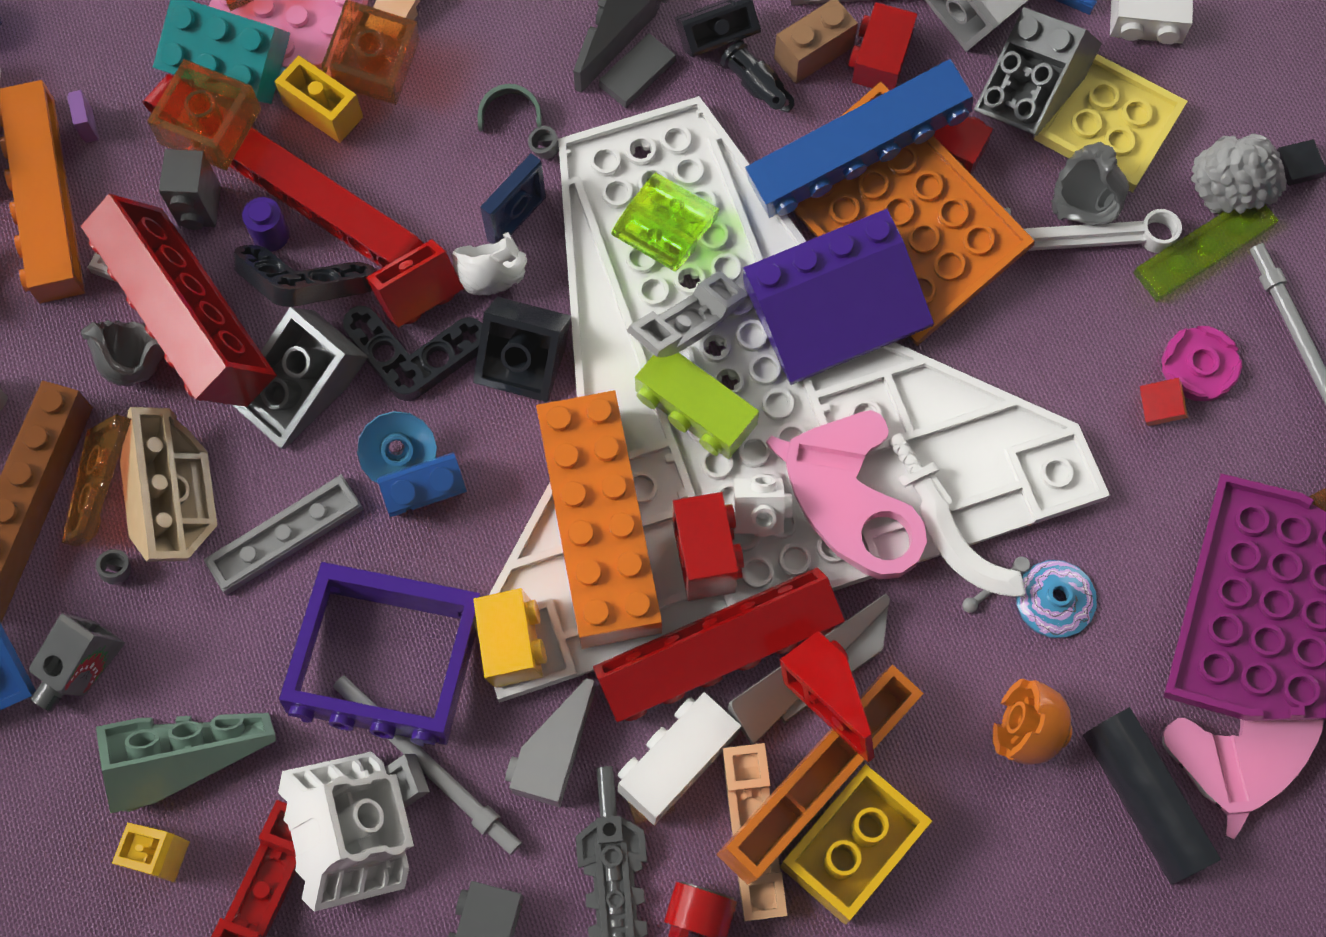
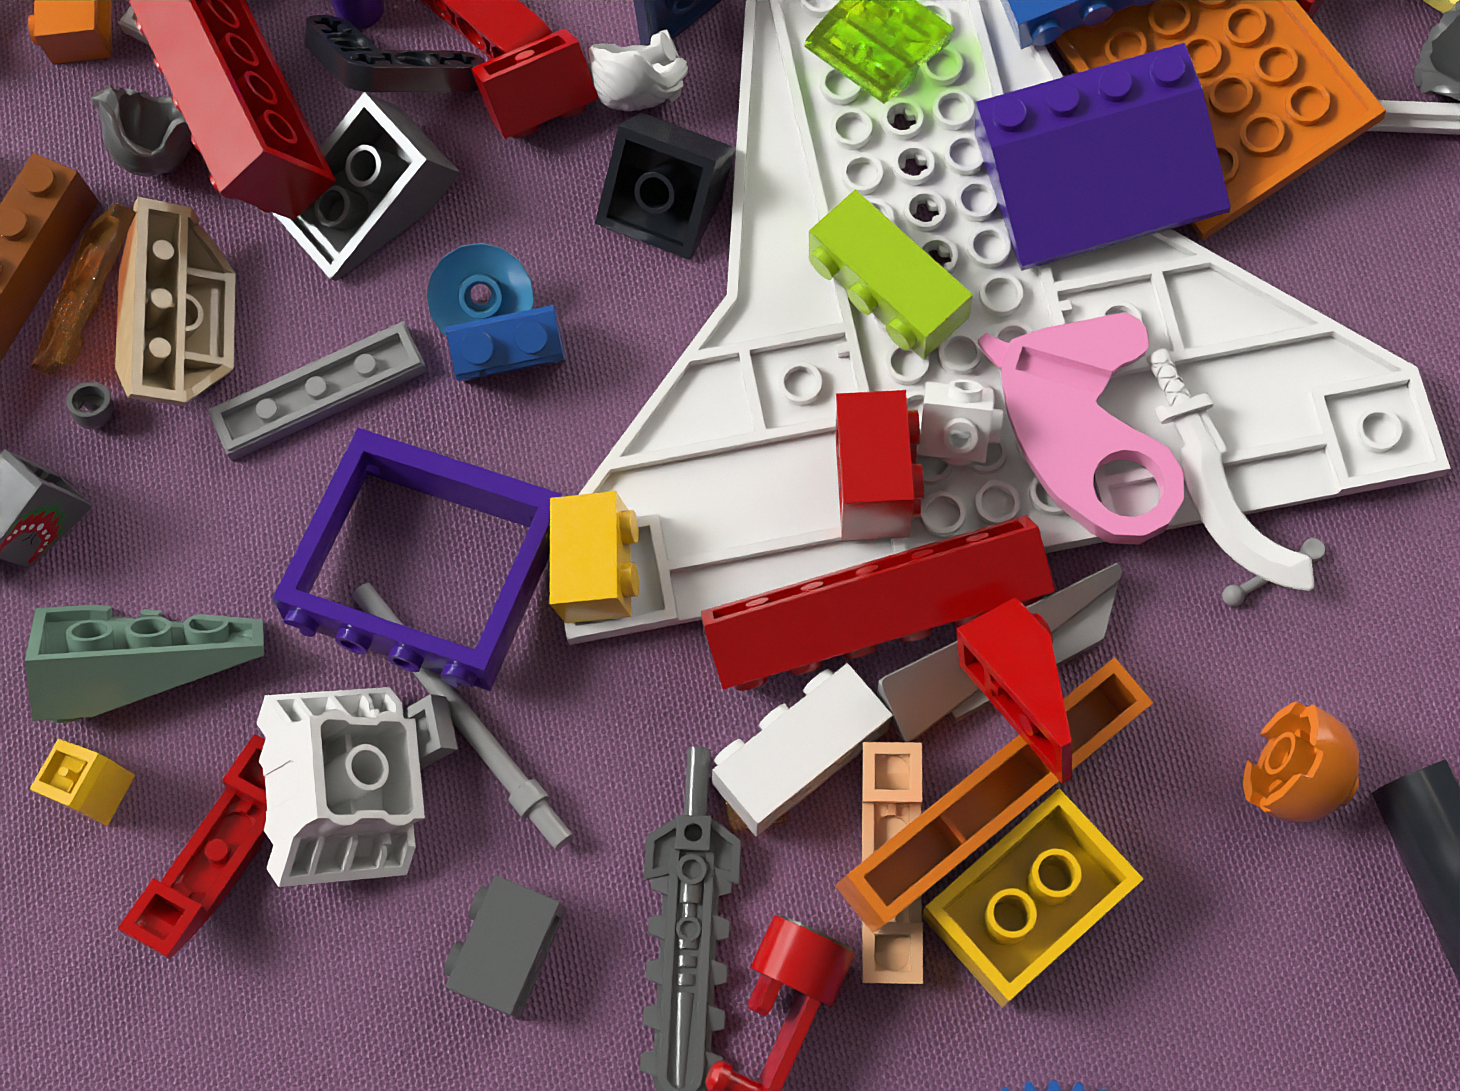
camera: 15 degrees right, 0 degrees up
(415, 364) = (523, 190): black beam -> none
(549, 754) = (628, 718): light grey slope -> none
(599, 520) = (734, 416): orange brick -> none
(691, 318) = (896, 166): light grey slope -> none
(1055, 617) = (1342, 621): dish -> none

